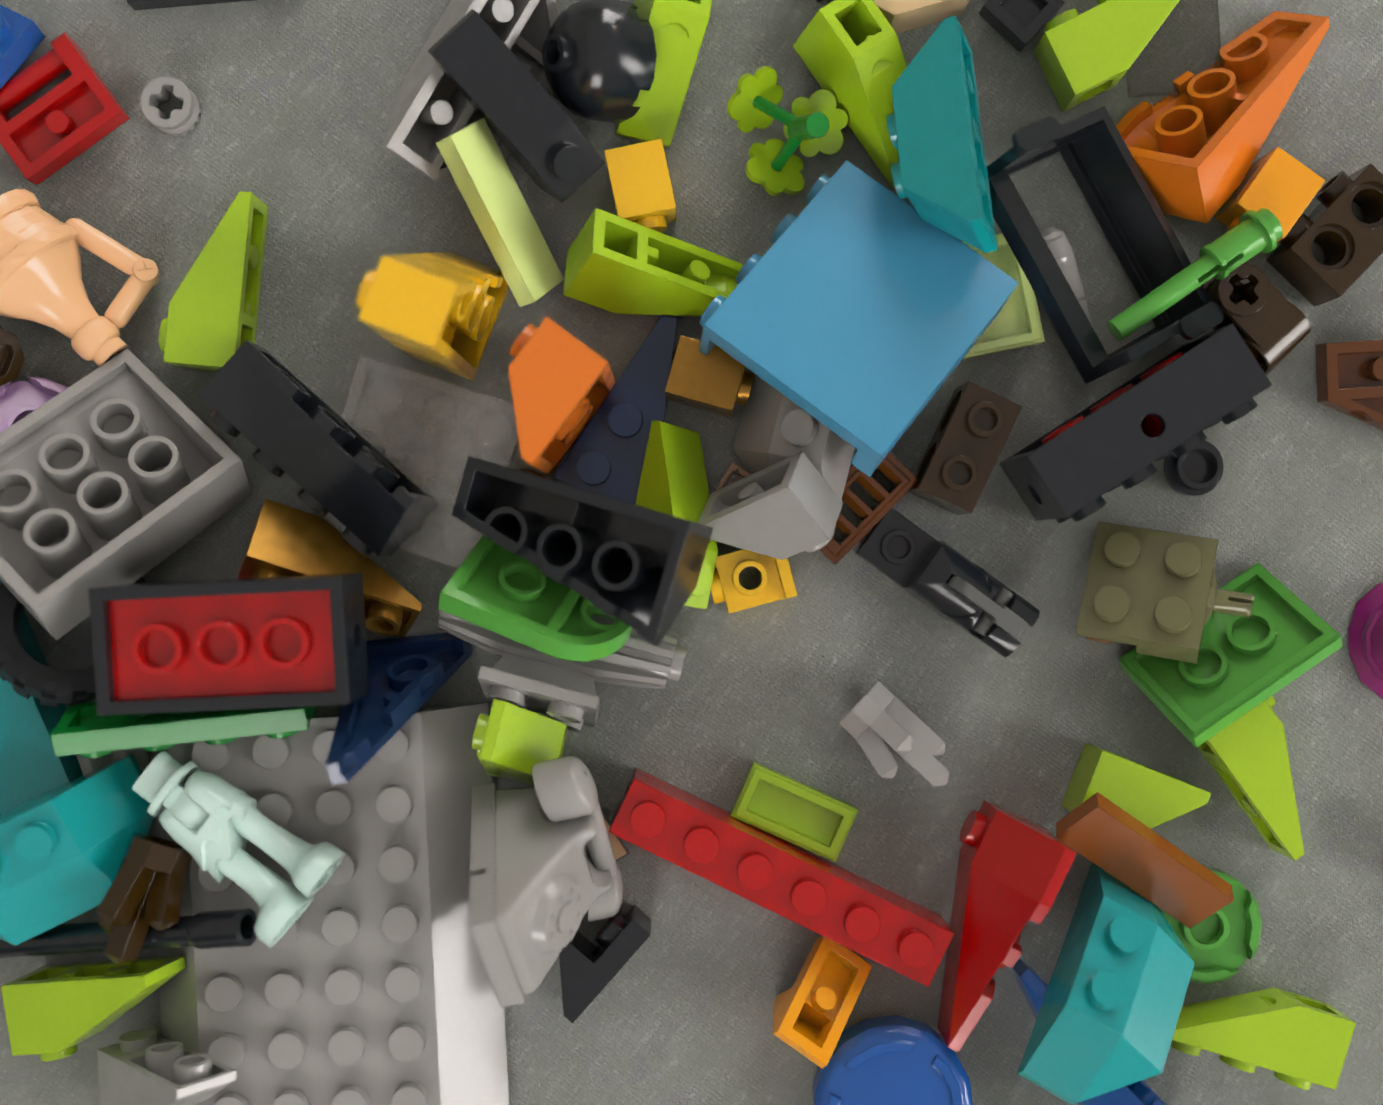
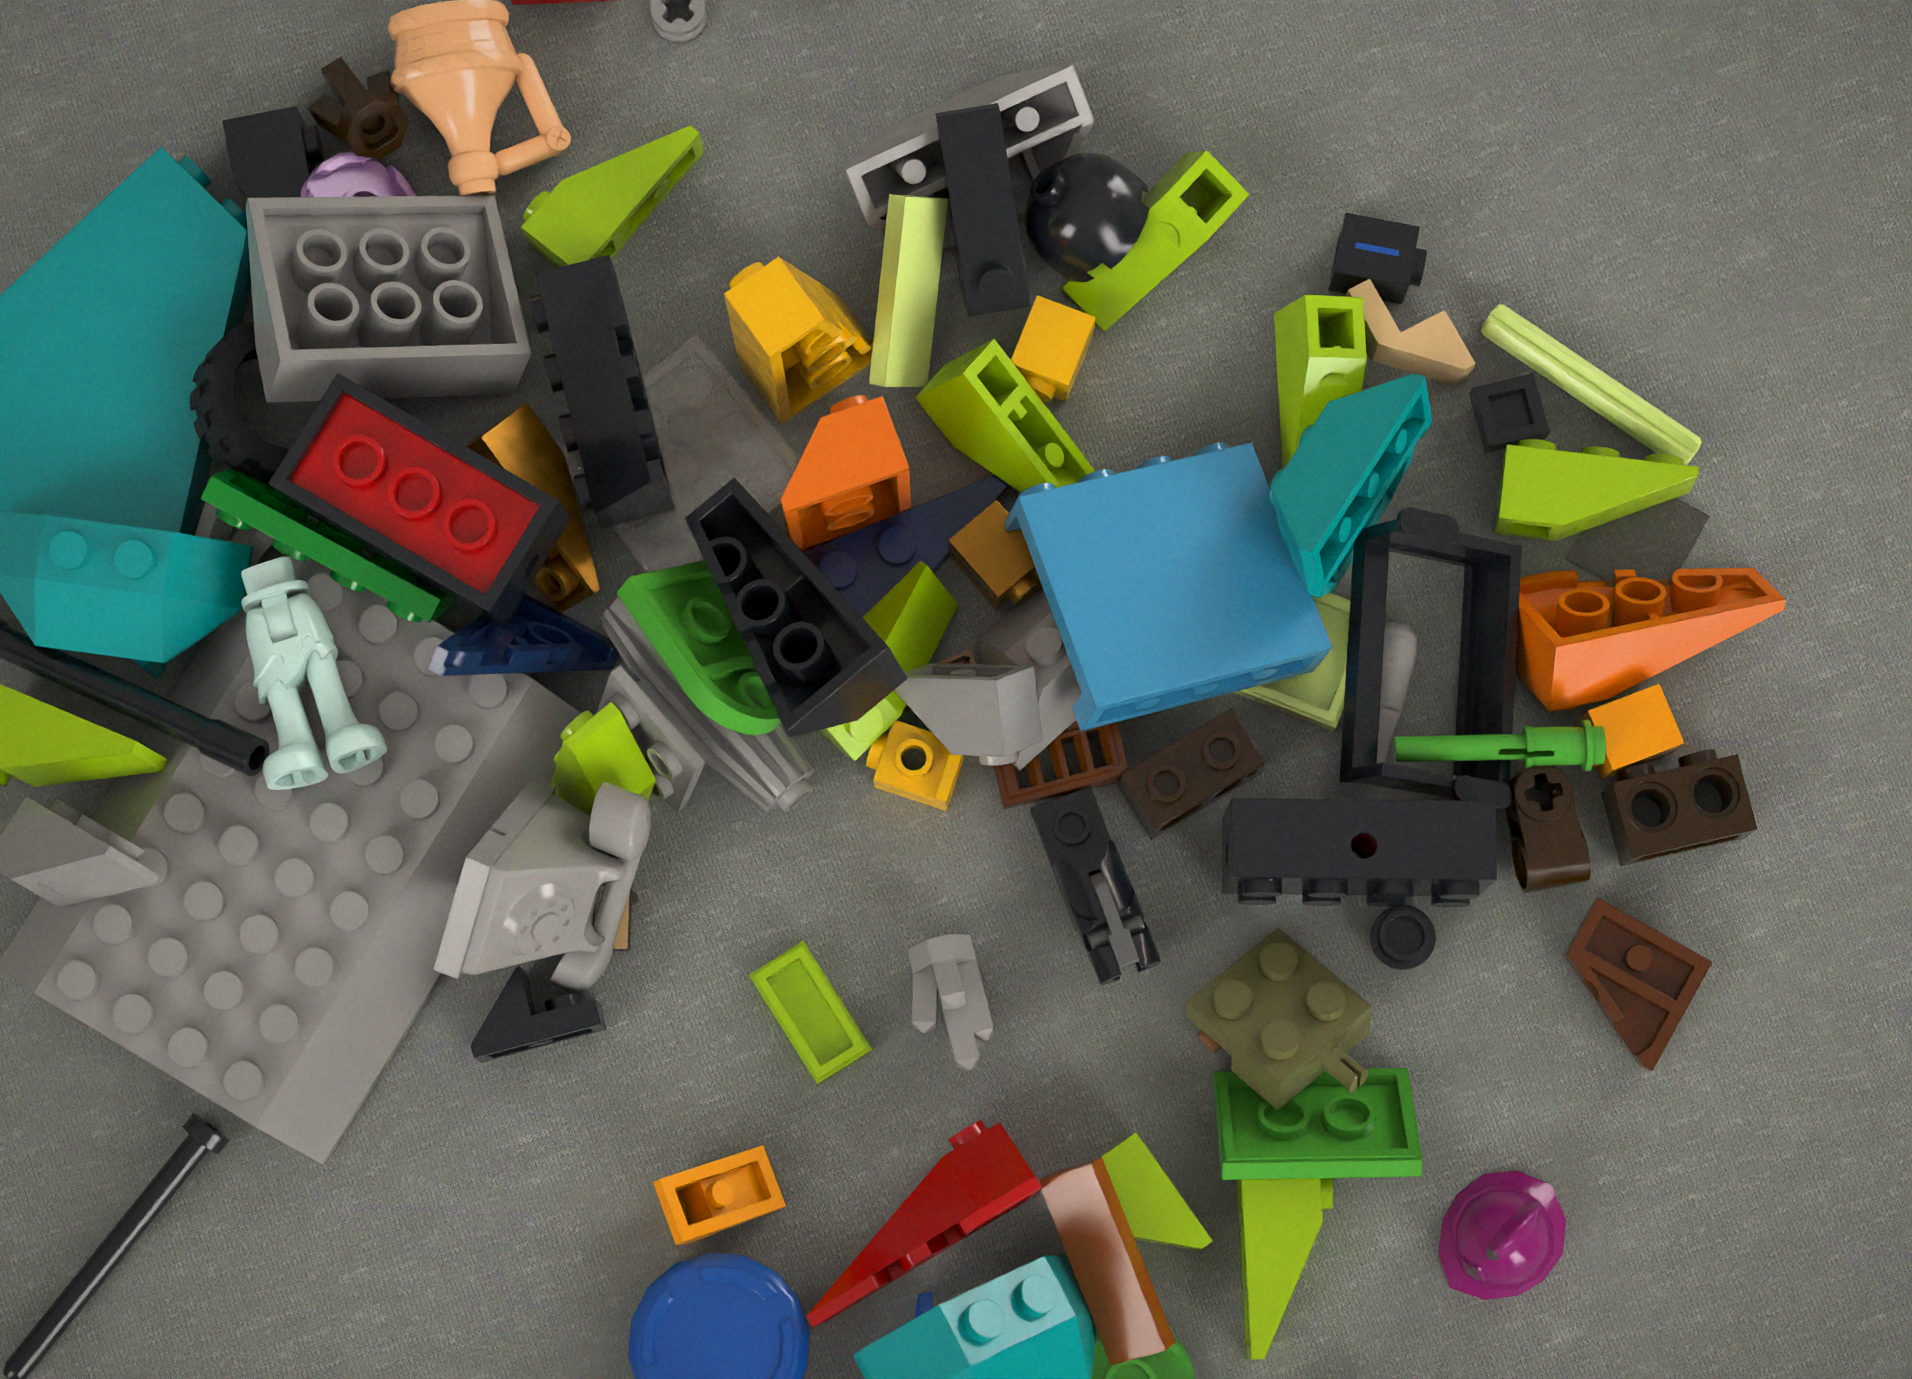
camera: 30 degrees right, 10 degrees down
(143, 894) = (185, 669): dark brown rock -> none
(781, 877) = (756, 1055): red brick -> none
(813, 126) = (1247, 396): lime plant -> none

